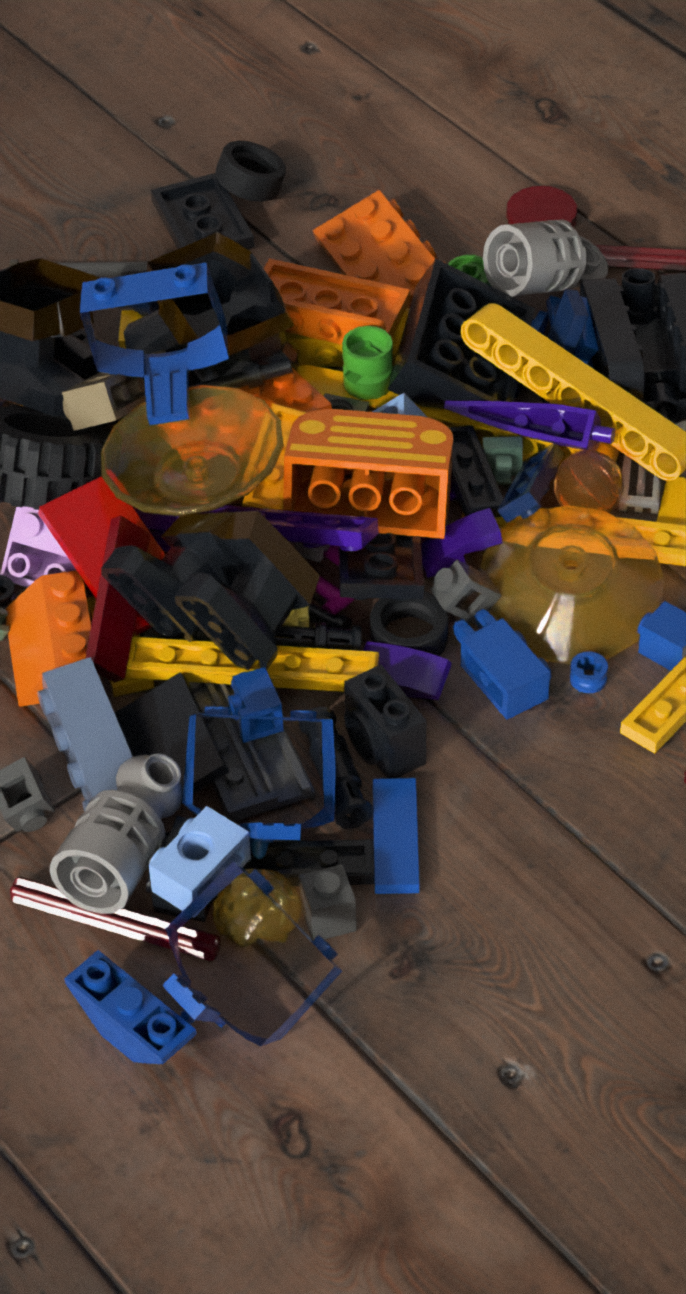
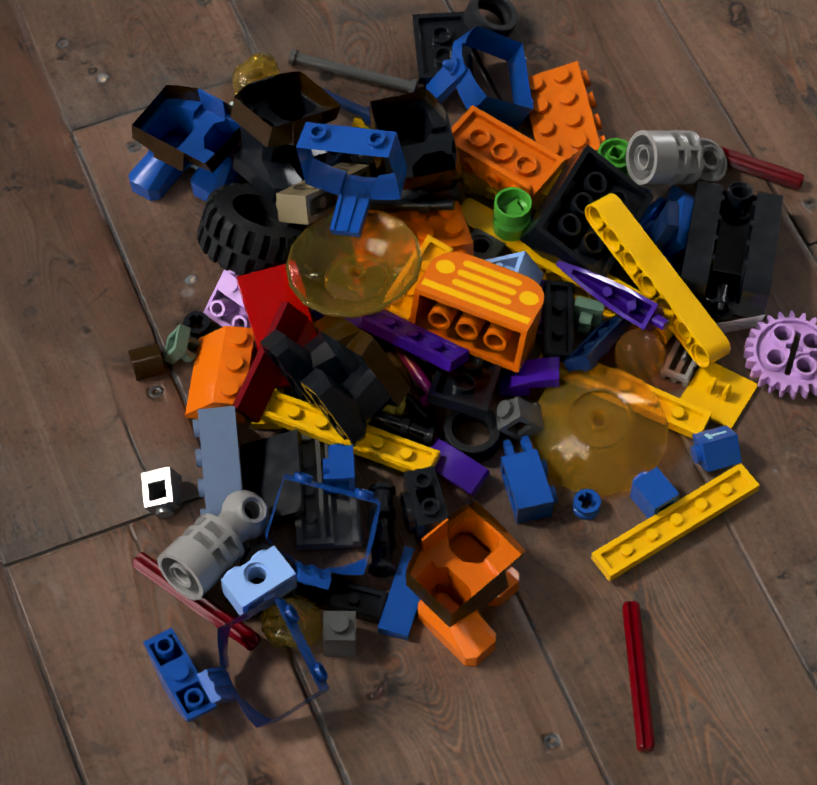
camera: 15 degrees right, 10 degrees up
(284, 200) = (457, 76): none -> blue piece
(463, 776) = (459, 573): none -> orange piece
(541, 204) = (696, 107): dark red tile -> none

